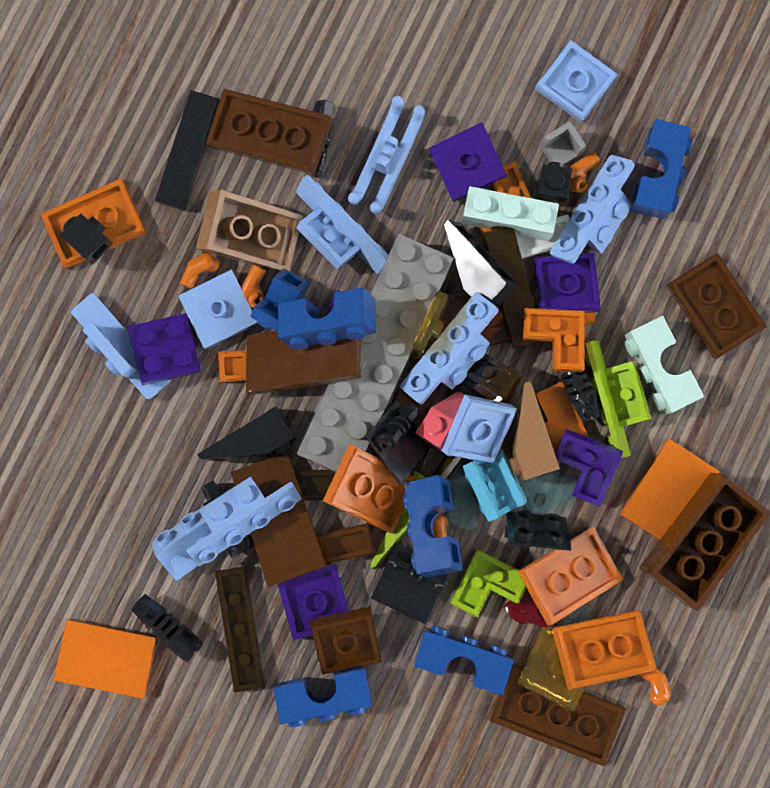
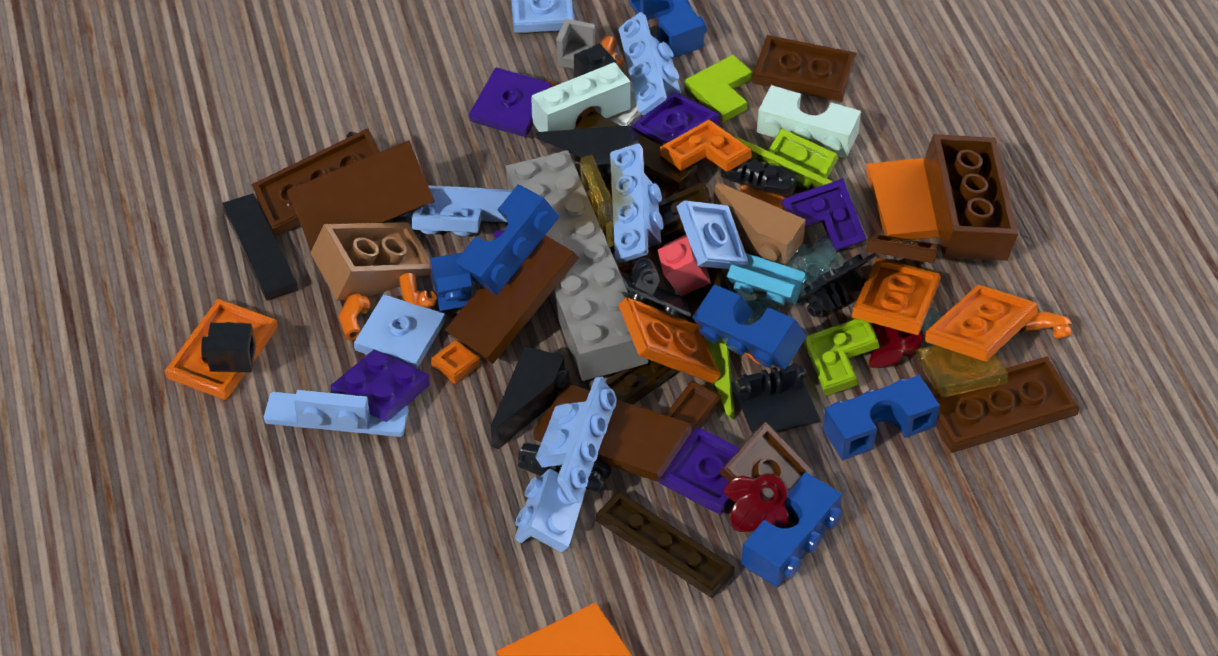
camera: 40 degrees left, 35 degrees down
(167, 628) = (594, 585): black hinge -> none
(277, 175) = (362, 192): none -> reddish brown tile
(320, 665) = (753, 506): none -> dark red plate
(387, 156) = (440, 140): light blue piece -> none
(605, 550) = (902, 248): none -> reddish brown tile
(632, 266) = (716, 87): none -> lime tile

